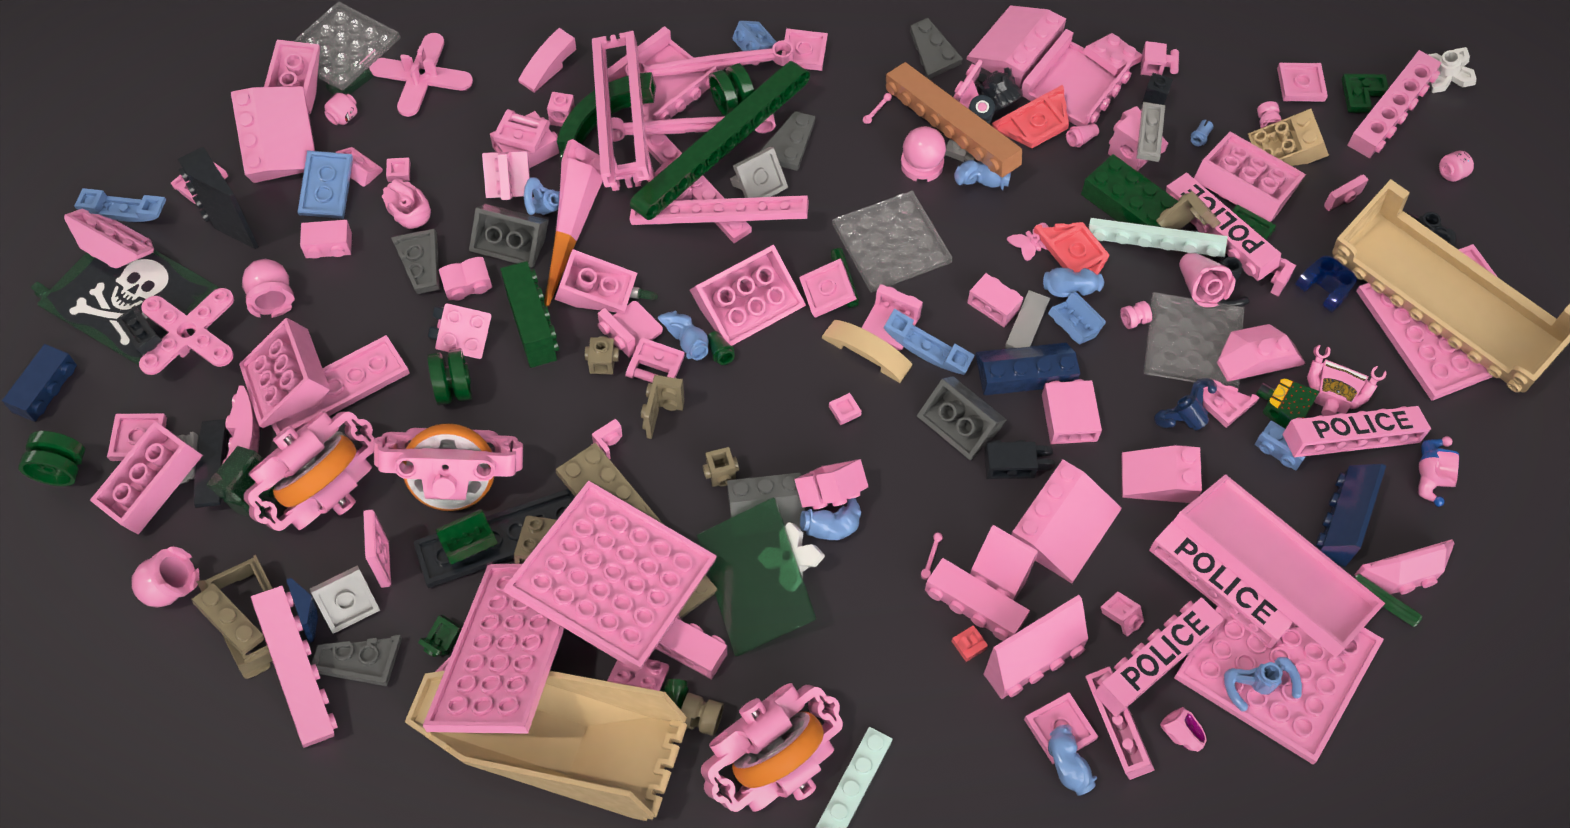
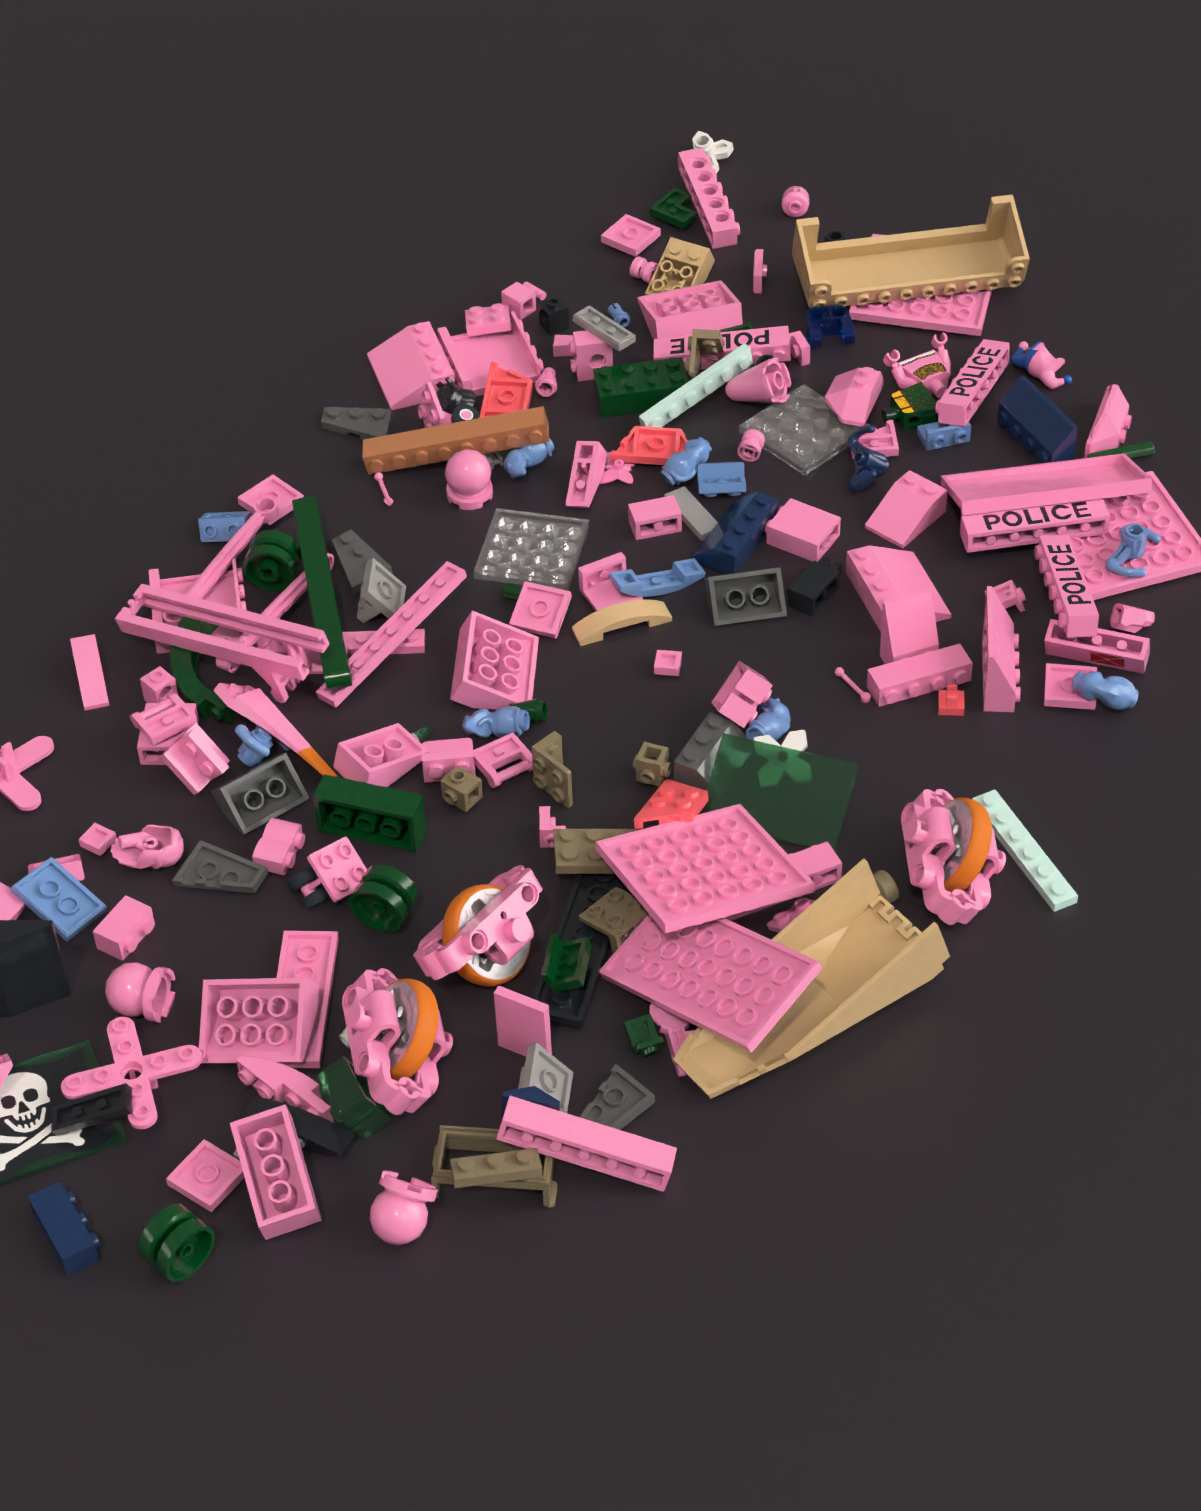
camera: 50 degrees left, 15 degrees down
(682, 508) = (672, 803): none -> coral wing
(1001, 224) = (586, 473): none -> bright pink slope

